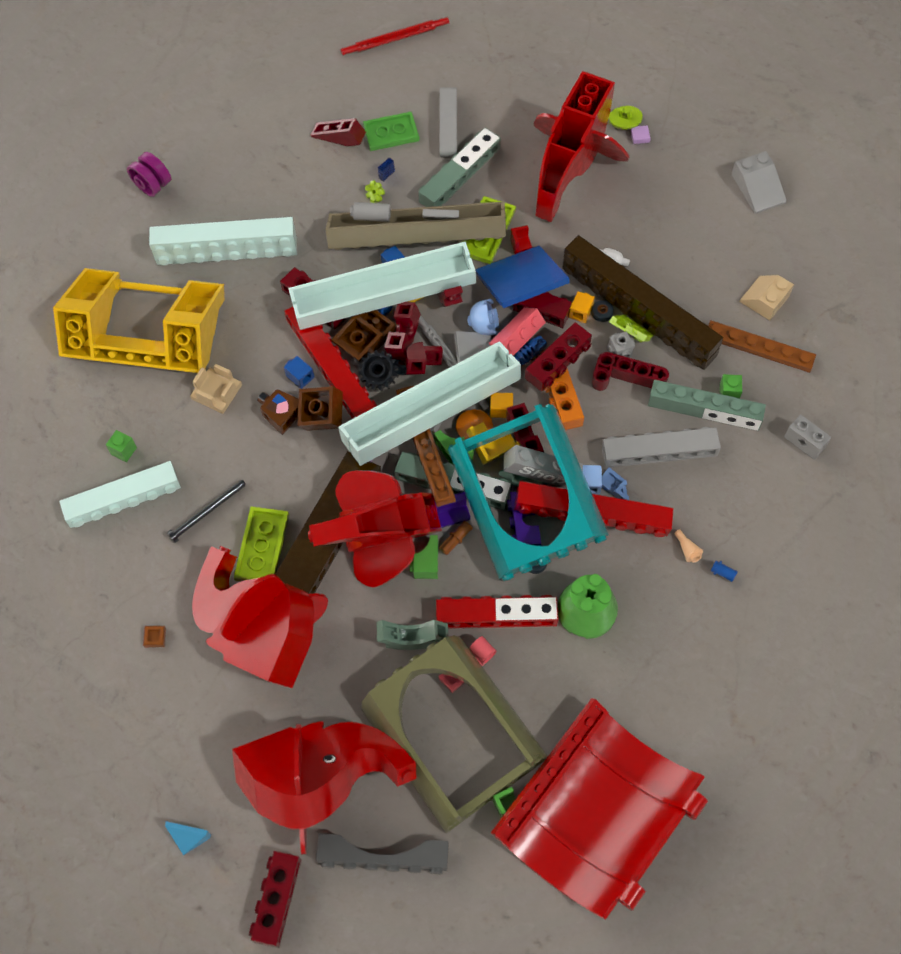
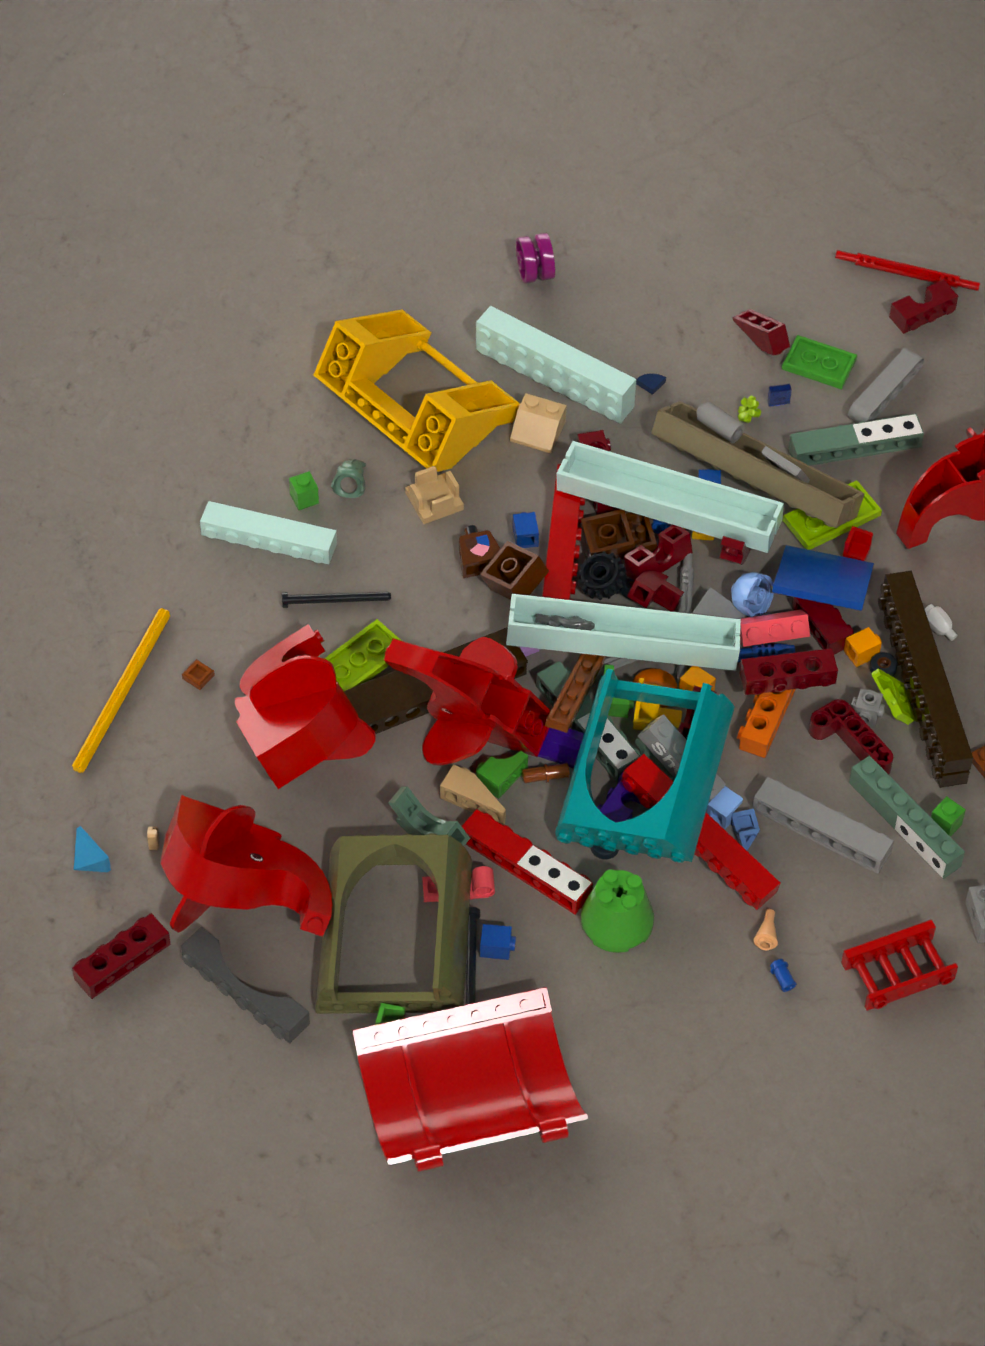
camera: 35 degrees right, 10 degrees down
(108, 691) = (120, 691): none -> yellow axle
(142, 408) = (353, 469): none -> sand green hair
(223, 787) = (153, 838): none -> tan tile
(245, 290) = (538, 423): none -> tan slope
(296, 212) = (651, 382): none -> dark blue tile
(393, 418) = (572, 622): none -> dark grey animal
(417, 589) = (468, 792): none -> tan slope
(432, 44) = (910, 315): none -> dark red arch
(526, 686) = (497, 942): none -> blue brick
(534, 731) = (474, 914): none -> black bar
(769, 511) = (899, 943): none -> red fence

